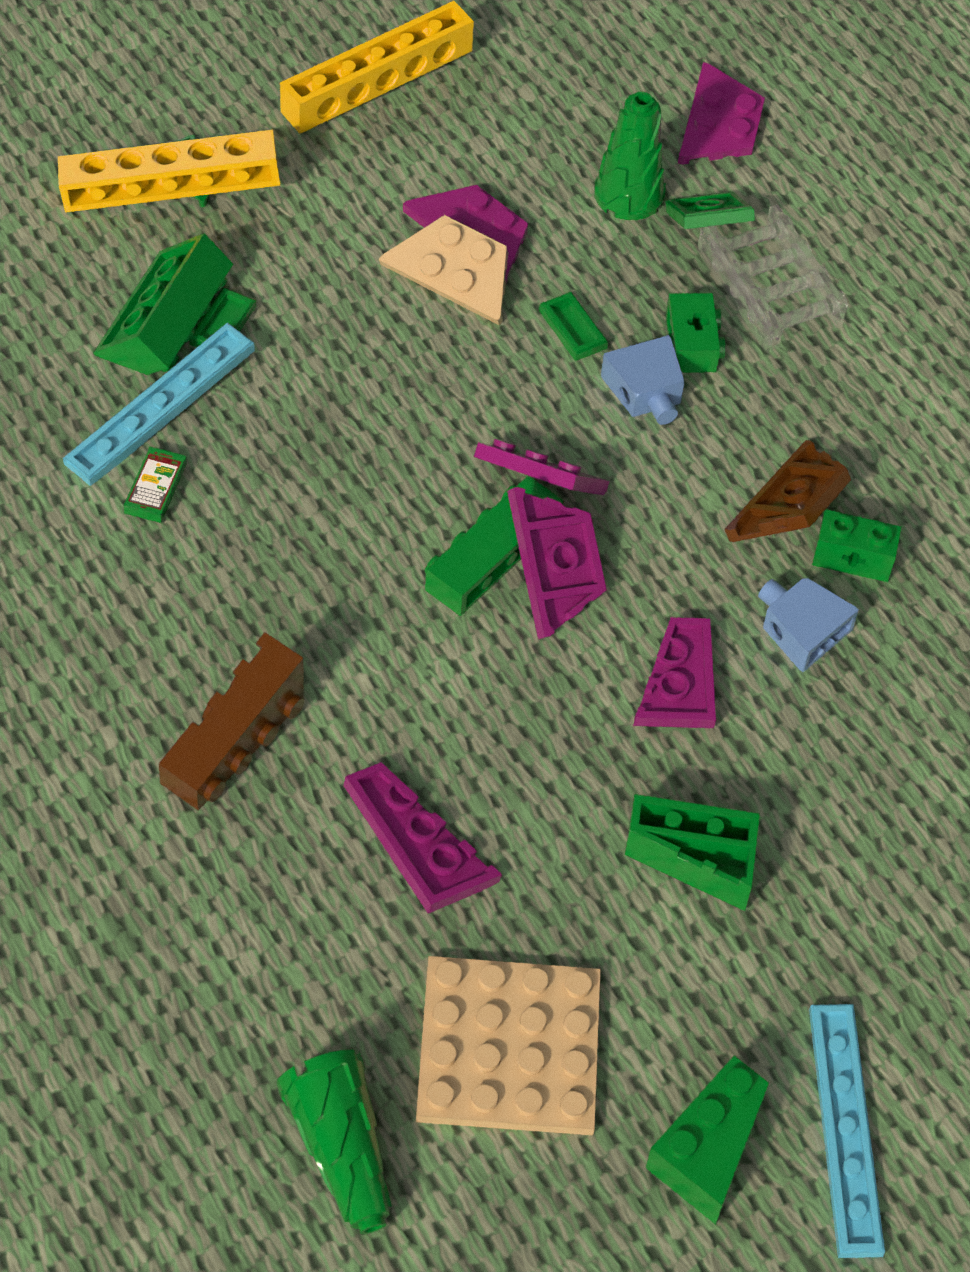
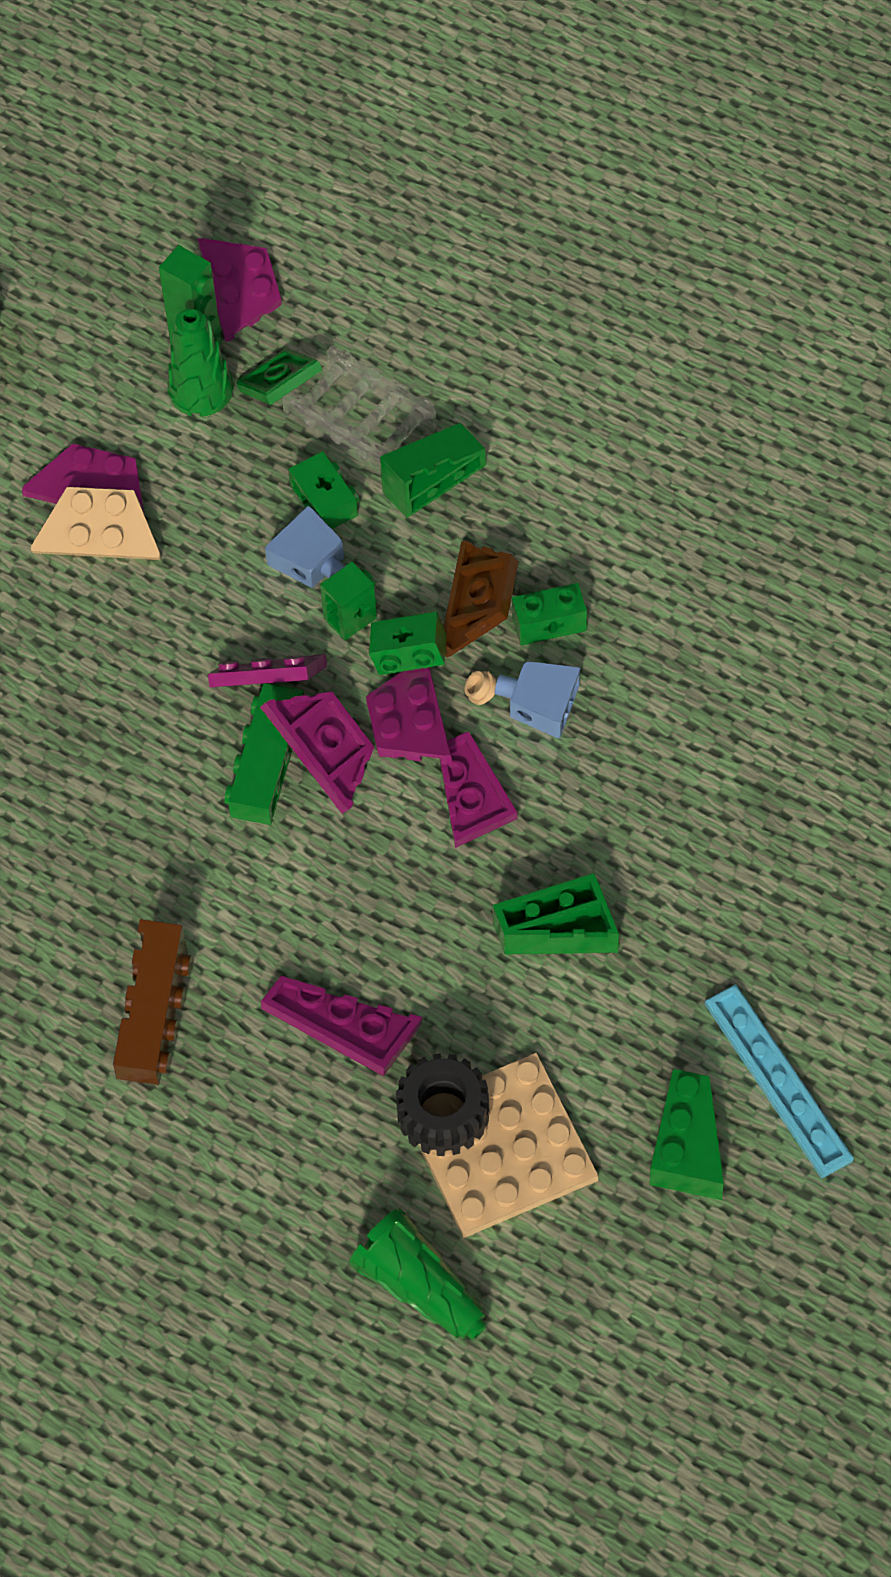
camera: 20 degrees left, 5 degrees up
(473, 938) = (435, 1078): none -> black tyre
(573, 326) = (222, 532): green tile -> none
(657, 577) = (408, 718): none -> magenta wing
(658, 438) = (349, 600): none -> green brick
(663, 72) = (188, 284): none -> green brick
(695, 506) = (407, 643): none -> green brick
(746, 583) = (480, 687): none -> tan plate
(811, 356) = (430, 467): none -> green wedge

